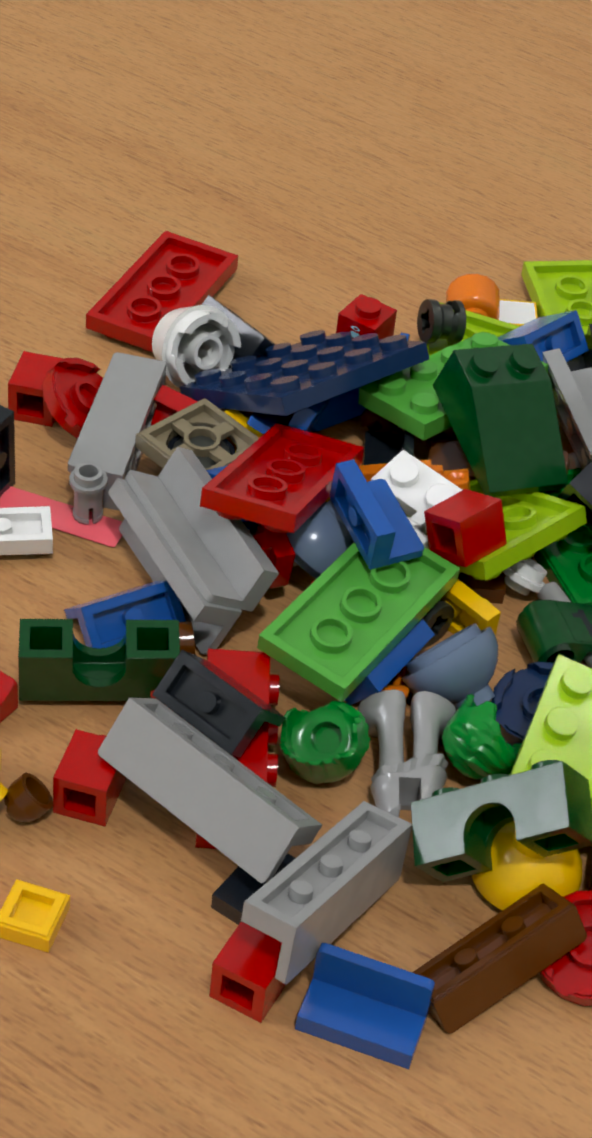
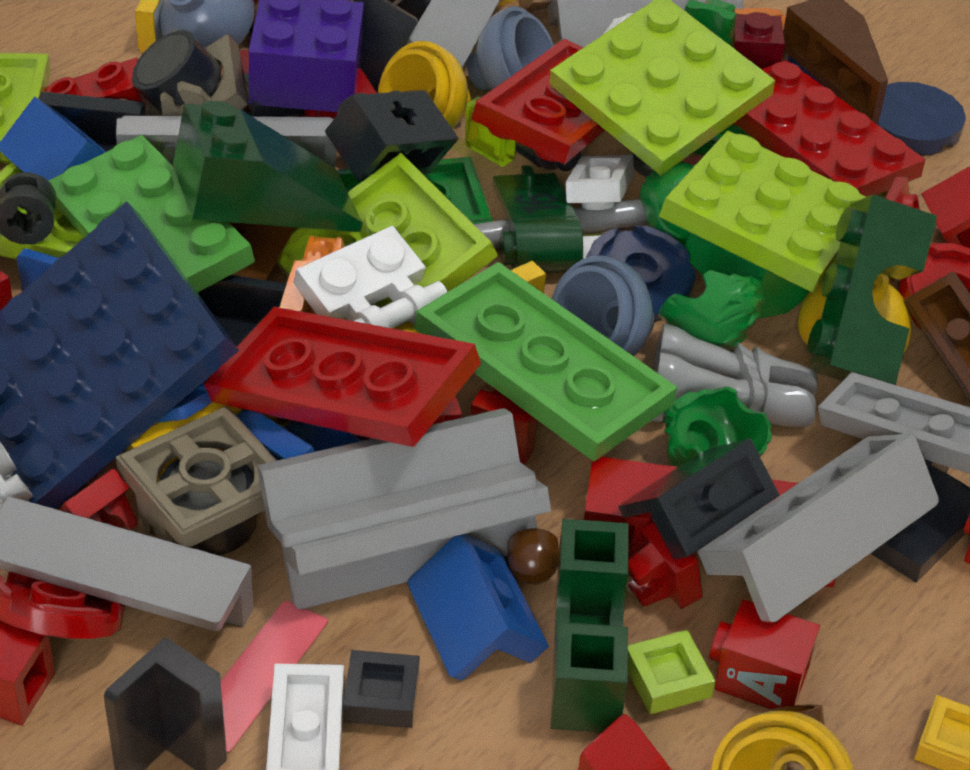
camera: 80 degrees left, 0 degrees up
(40, 565) = (381, 689): none -> black plate
(71, 712) = (669, 672): none -> lime plate
(88, 483) = (257, 606): light grey pin -> none
(373, 517) = (439, 303): blue panel -> none
(466, 527) = (445, 239): red brick -> none

